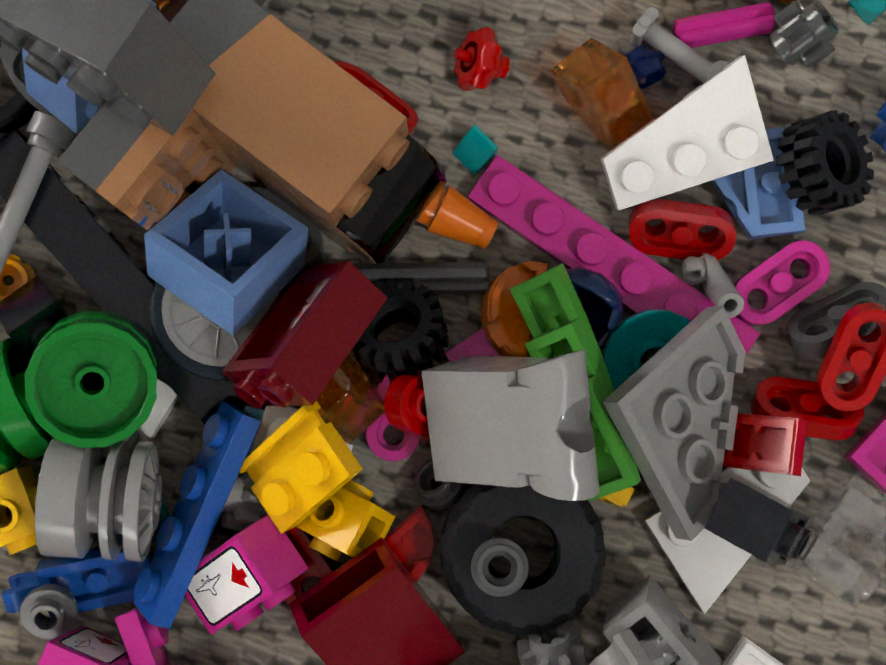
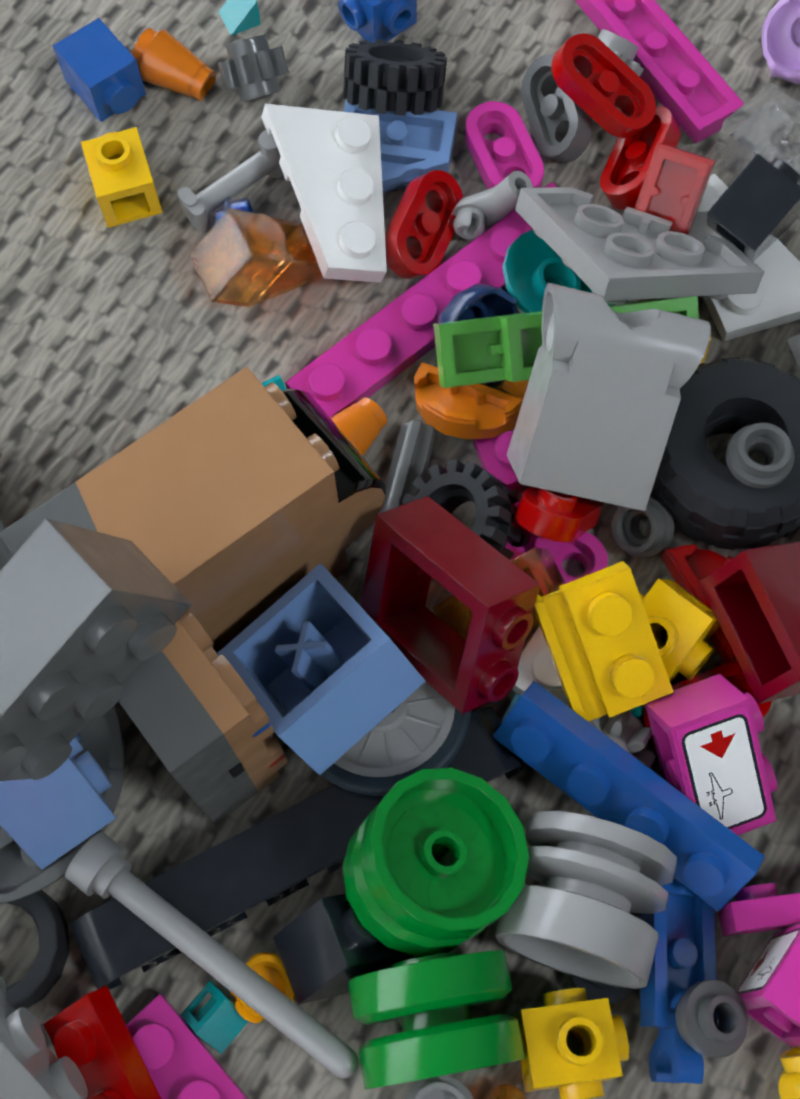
camera: 75 degrees left, 15 degrees down
(480, 60) = (172, 374): red piece -> none
(725, 25) = (217, 137): dark pink axle -> none

